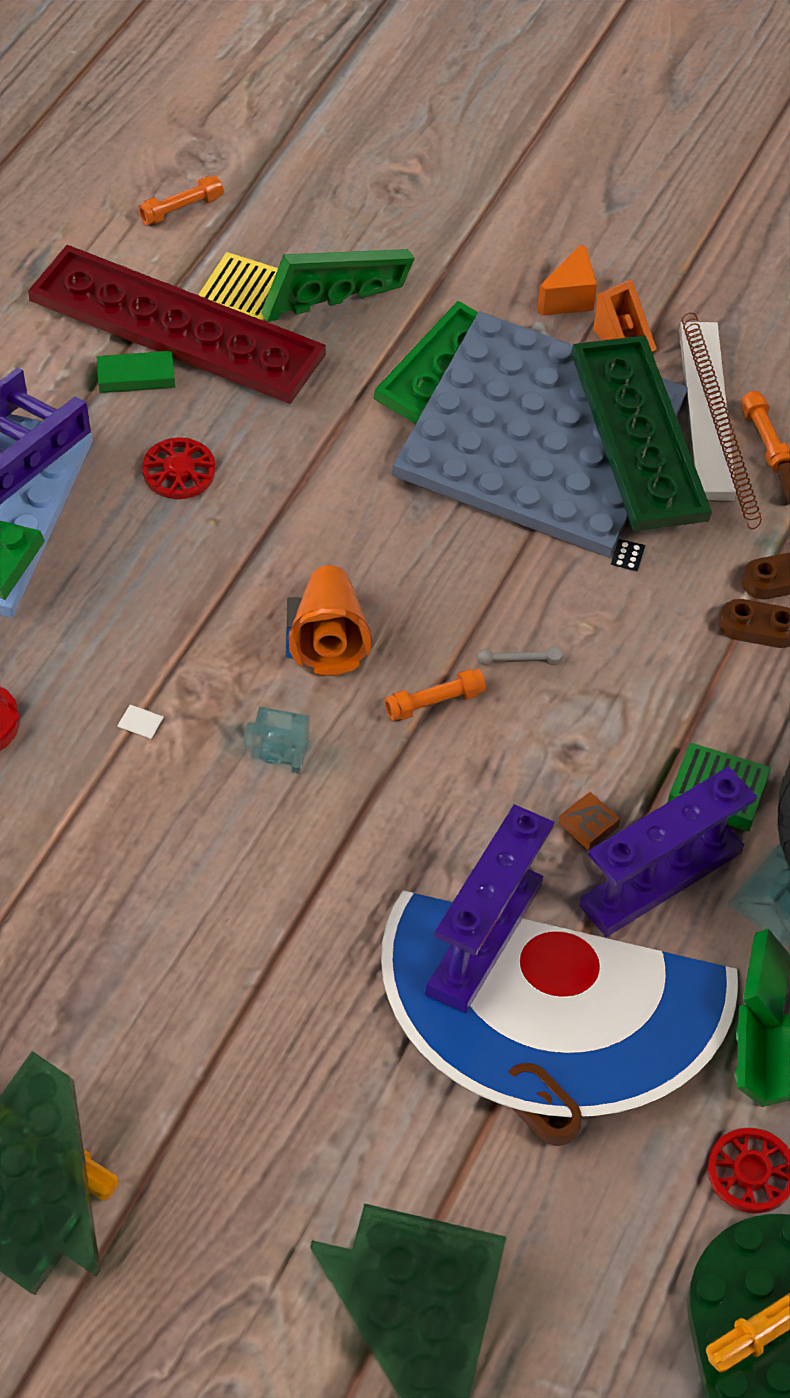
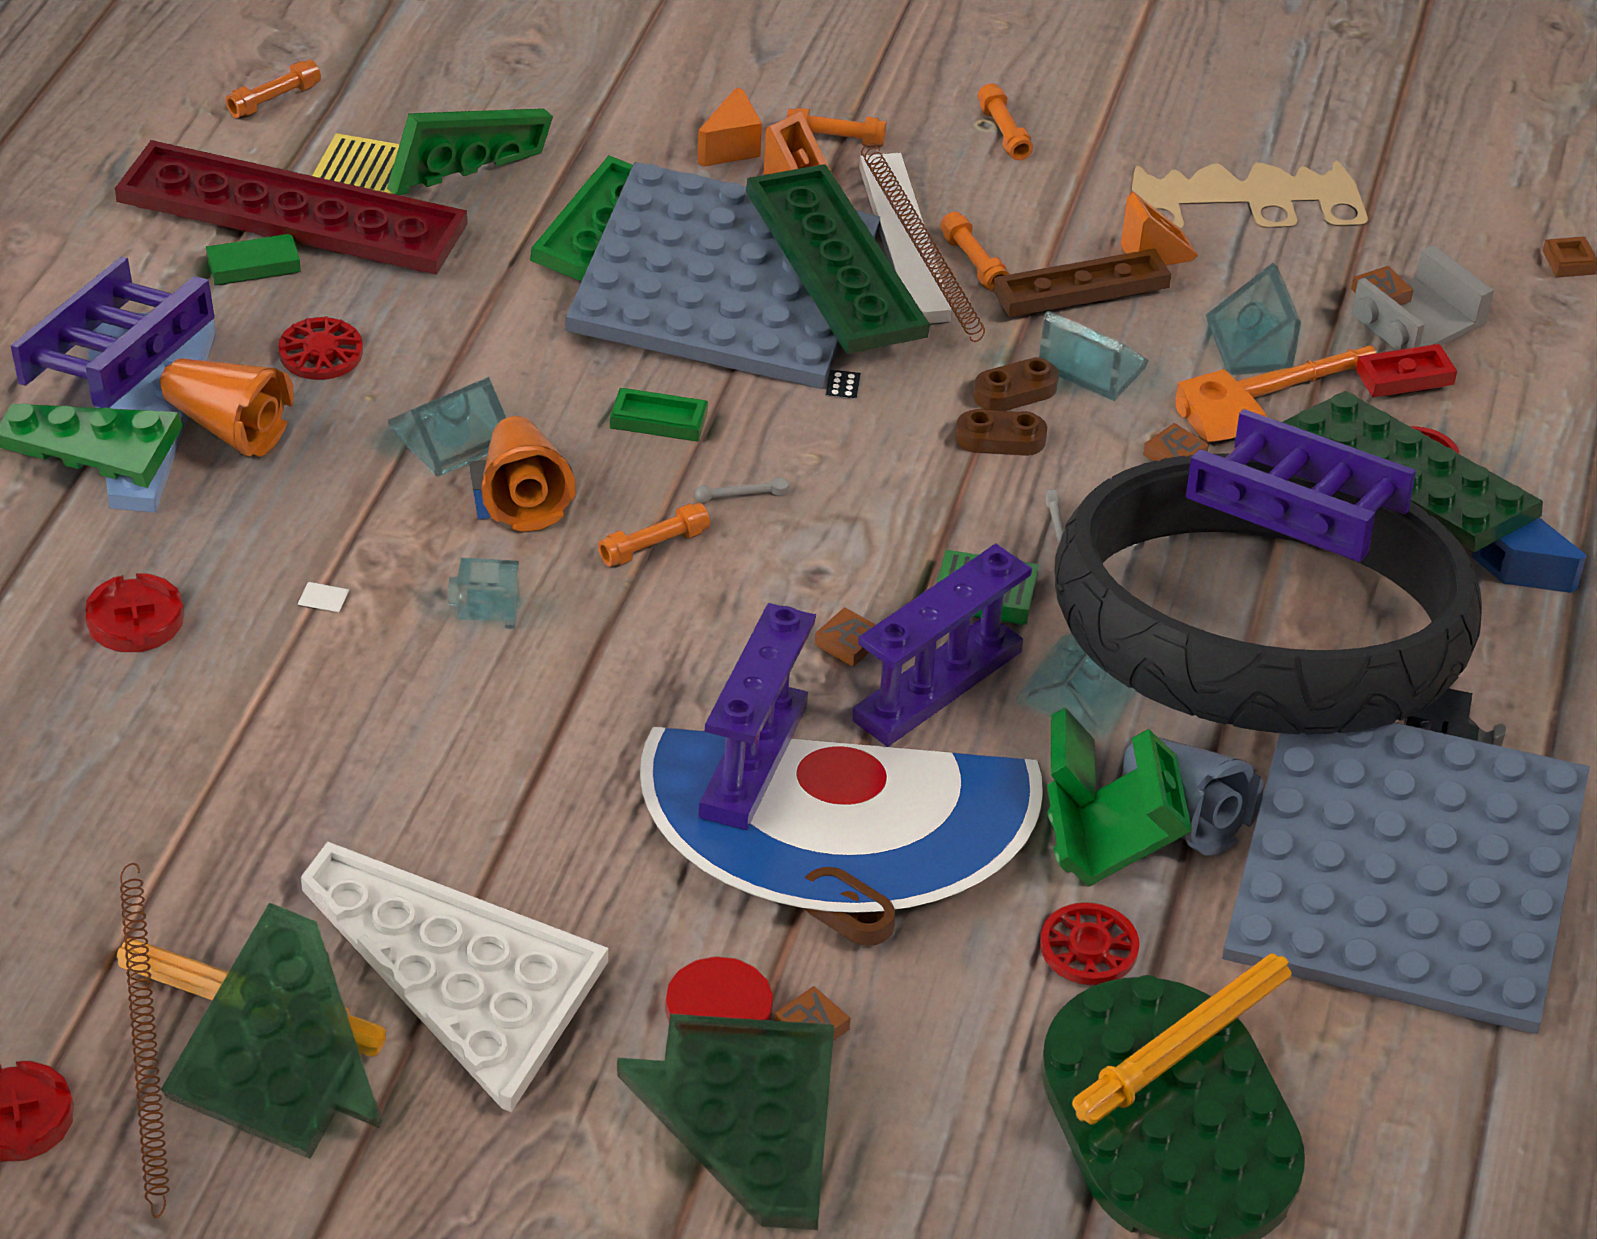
camera: 10 degrees left, 10 degrees down
(89, 522) = (231, 401): none -> orange cone
(201, 1121) = (469, 970): none -> white wing
(277, 563) = (452, 427): none -> clear light blue slope
(414, 1180) = (719, 989): none -> red tile
(460, 569) = (659, 414): none -> green tile
(492, 1213) = (814, 1008): none -> dark orange tile
(695, 297) = (870, 131): none -> orange bar

